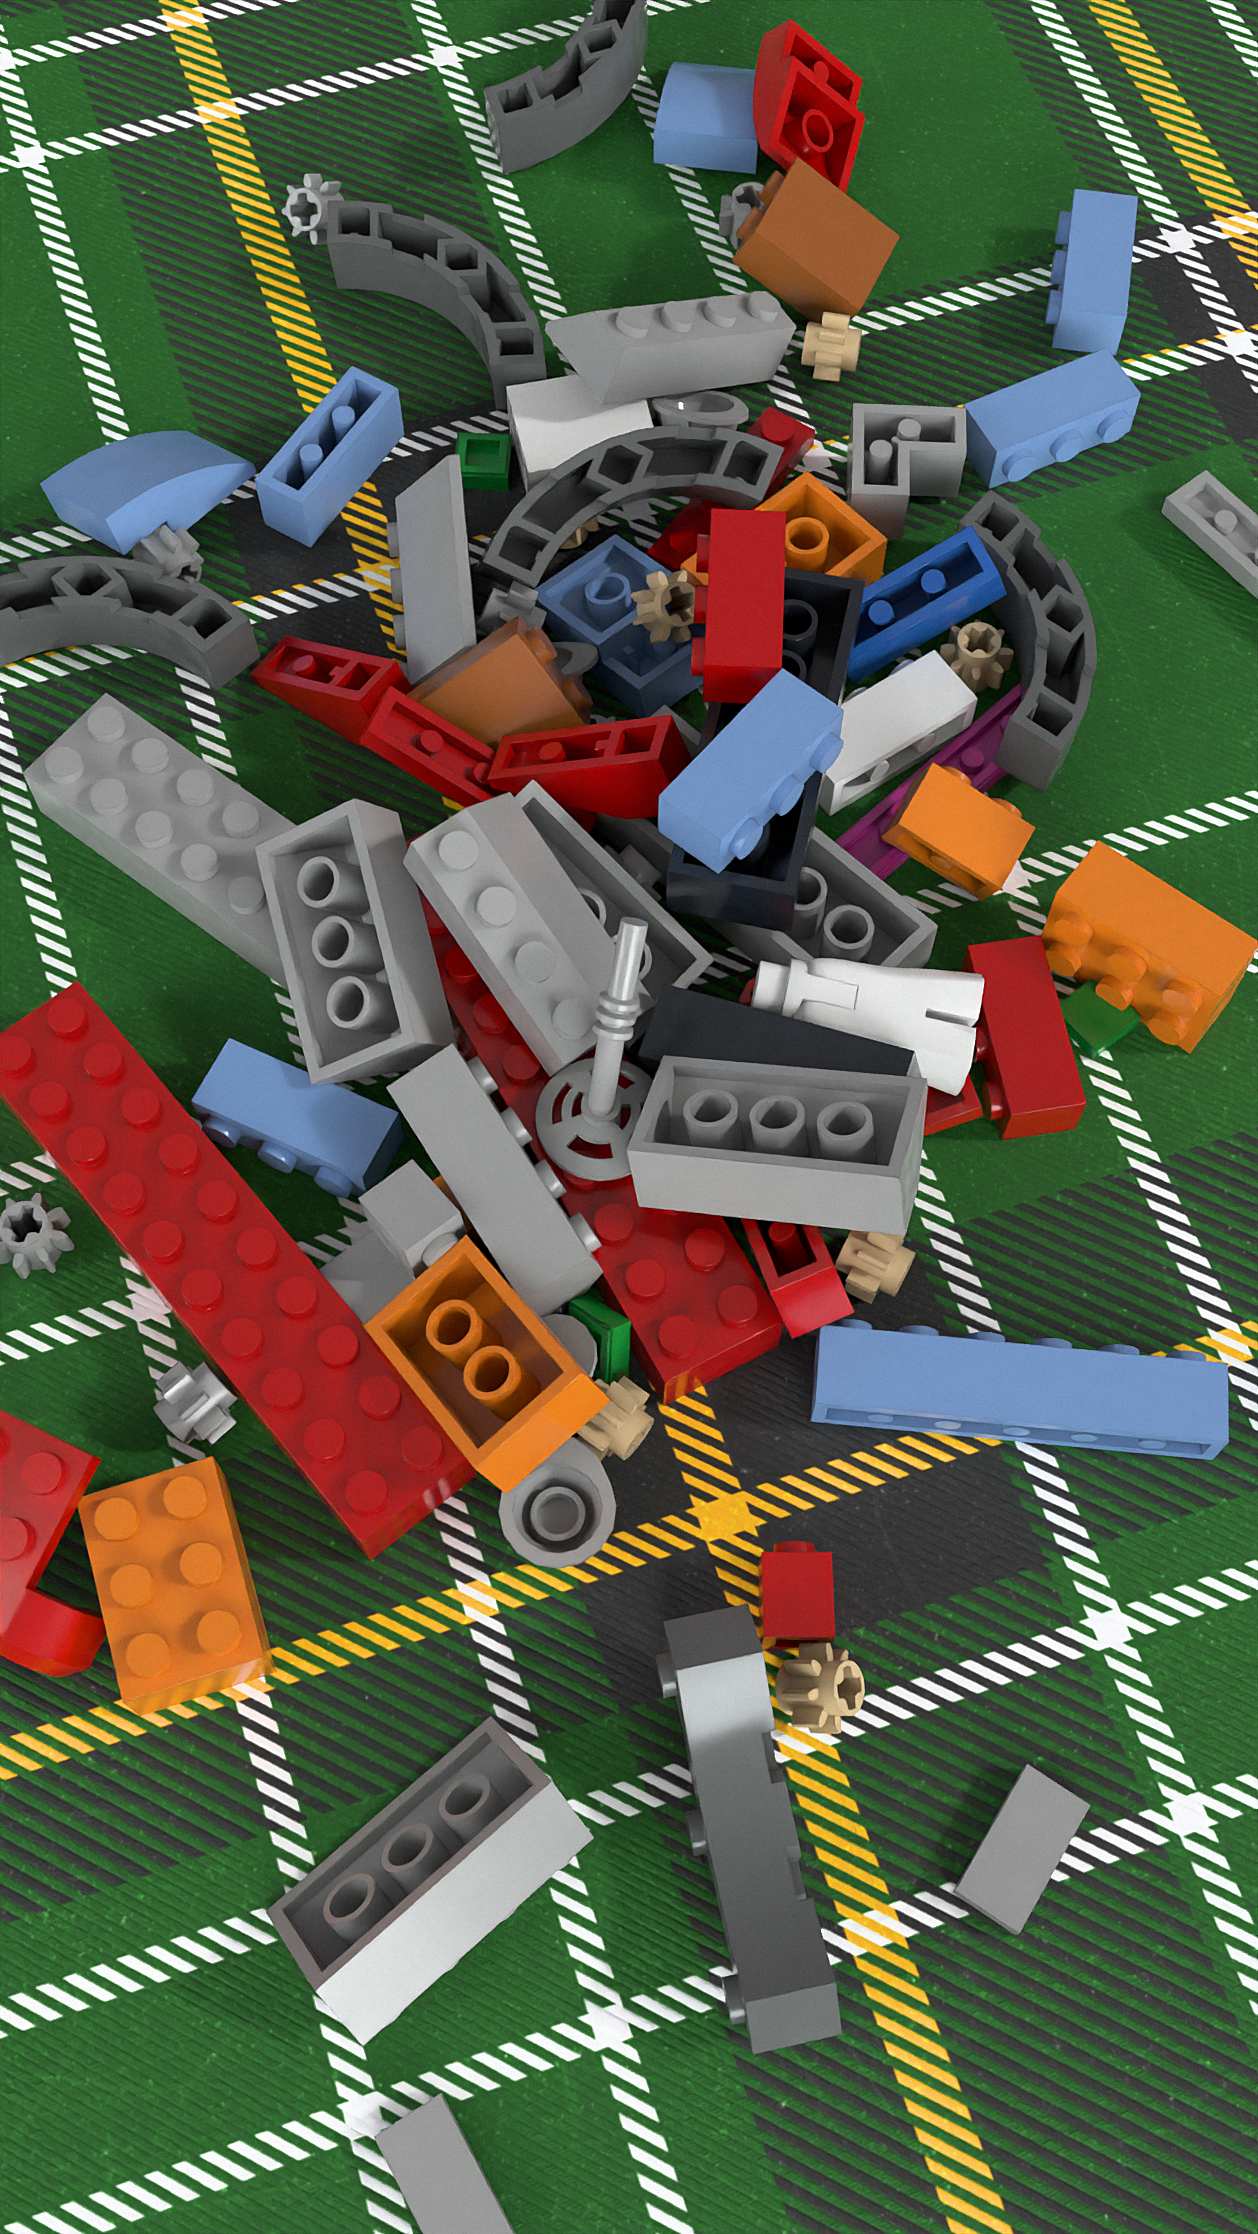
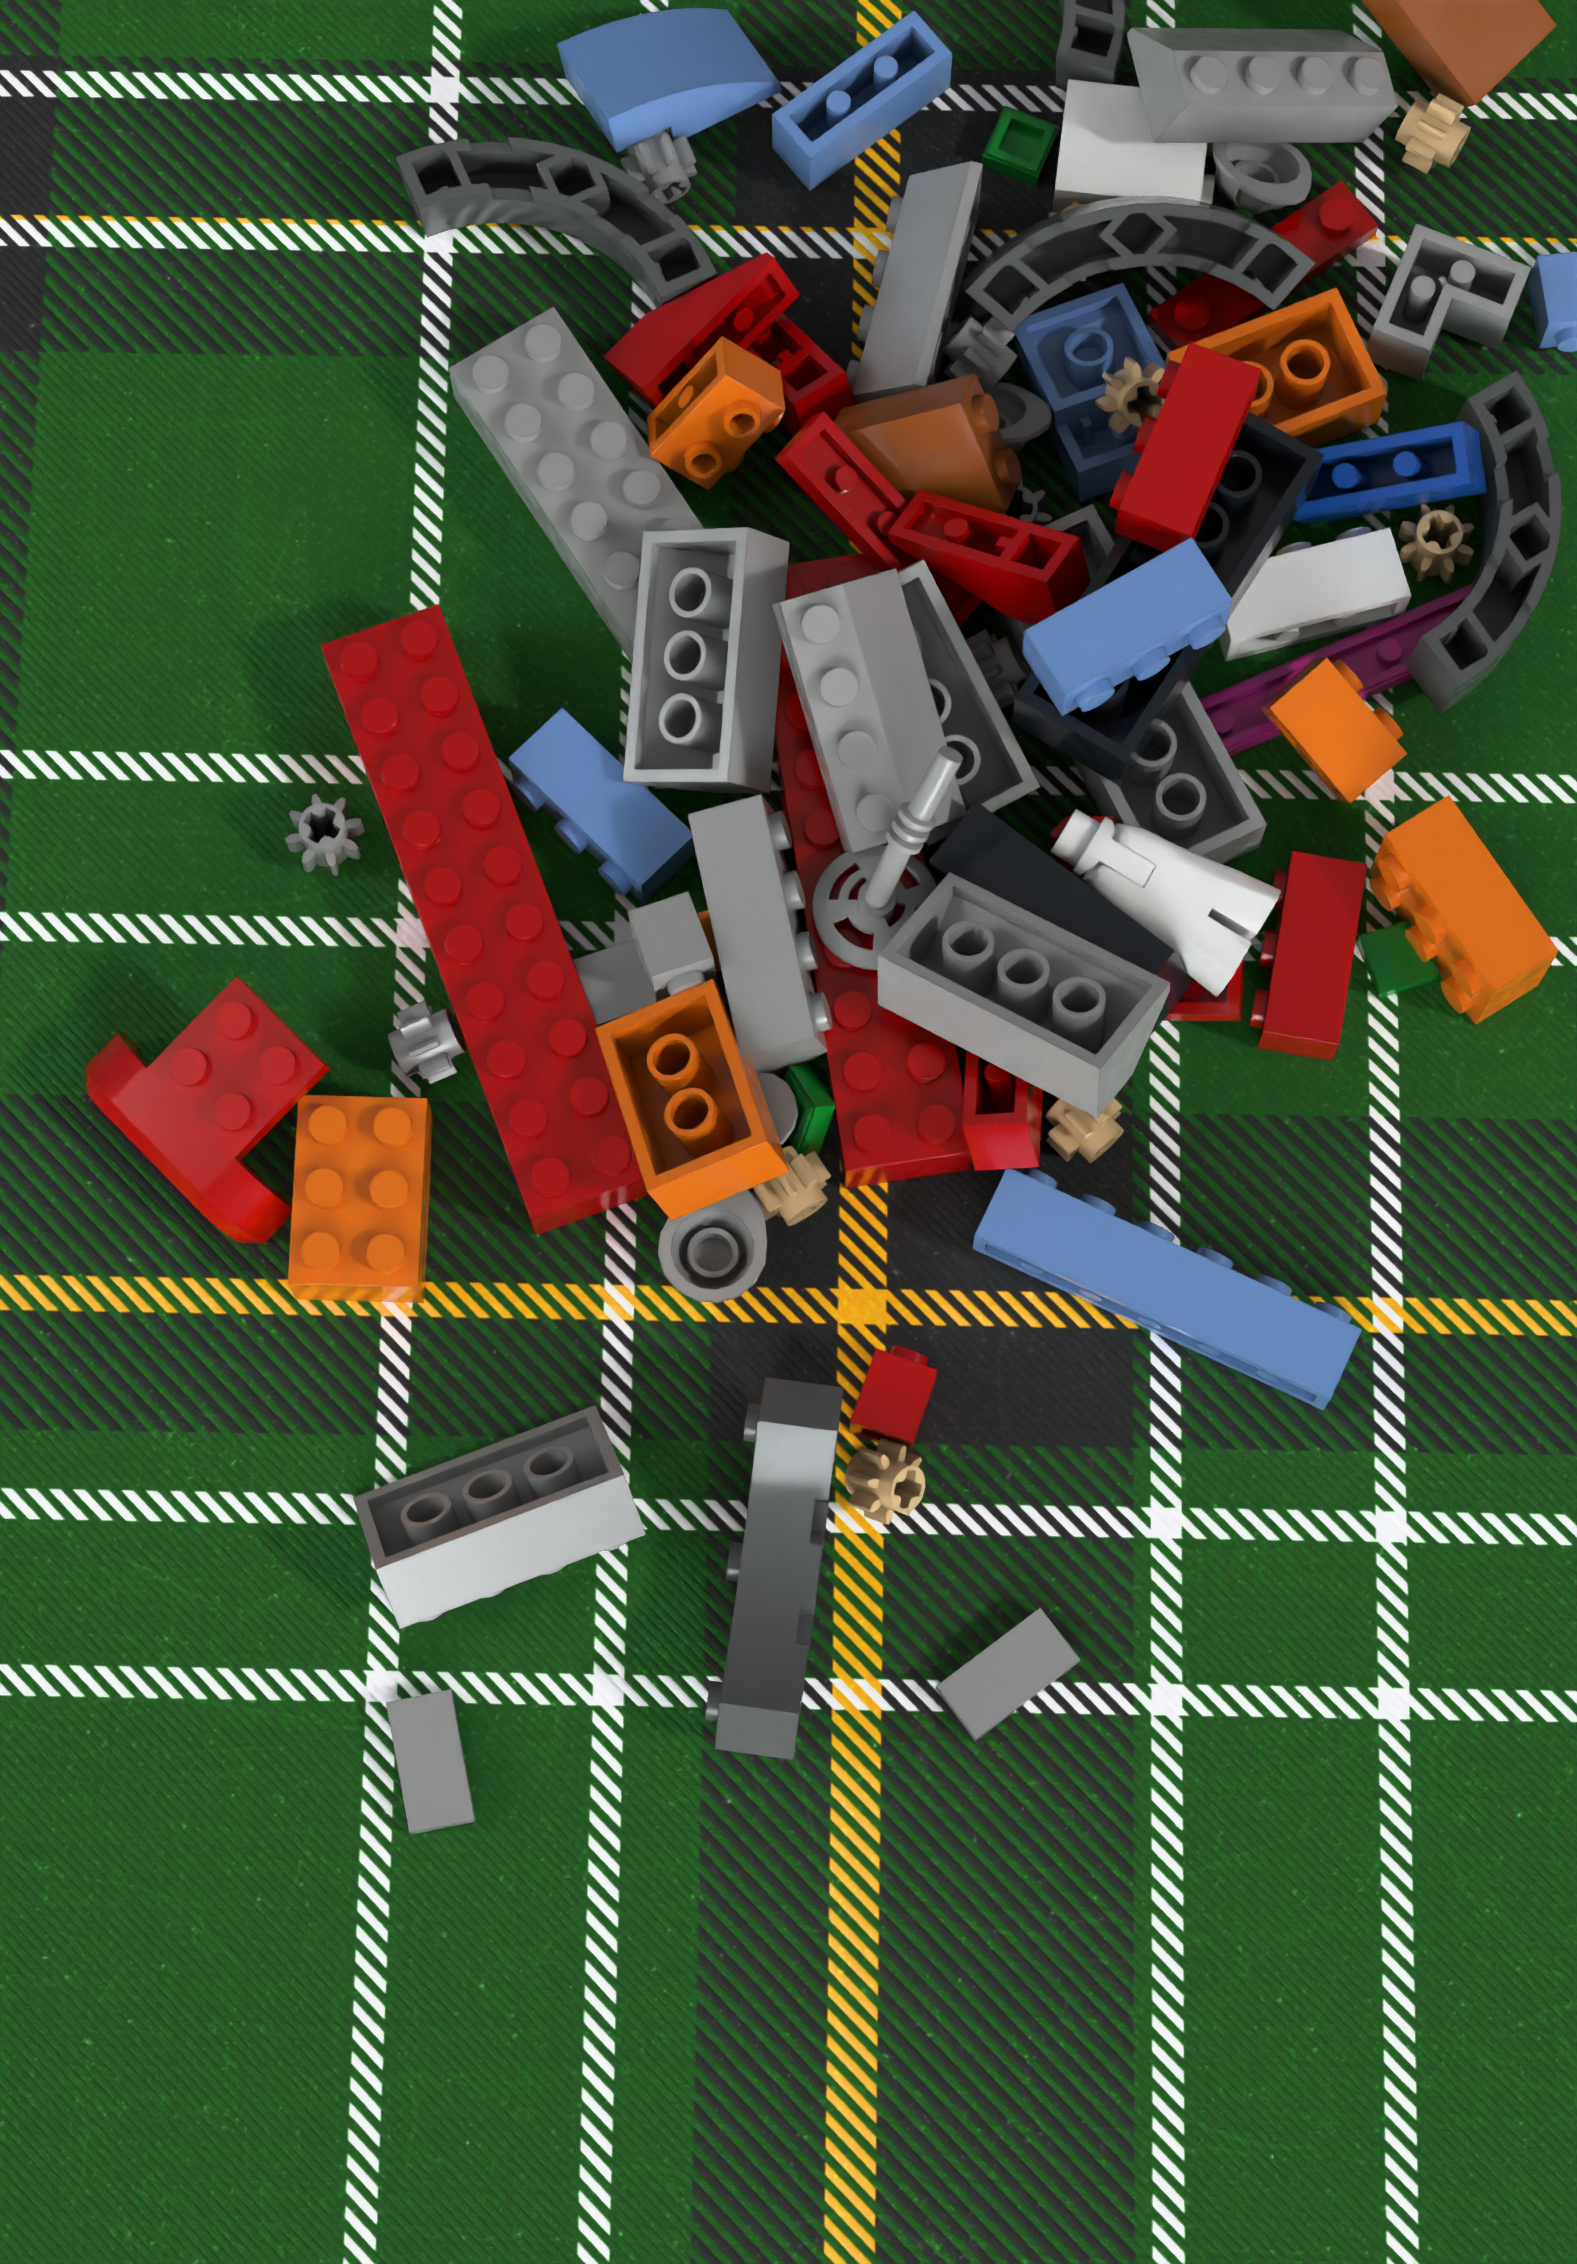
camera: 20 degrees right, 10 degrees up
(250, 679) = (679, 333): none -> red slope
(289, 734) = (716, 413): none -> orange brick

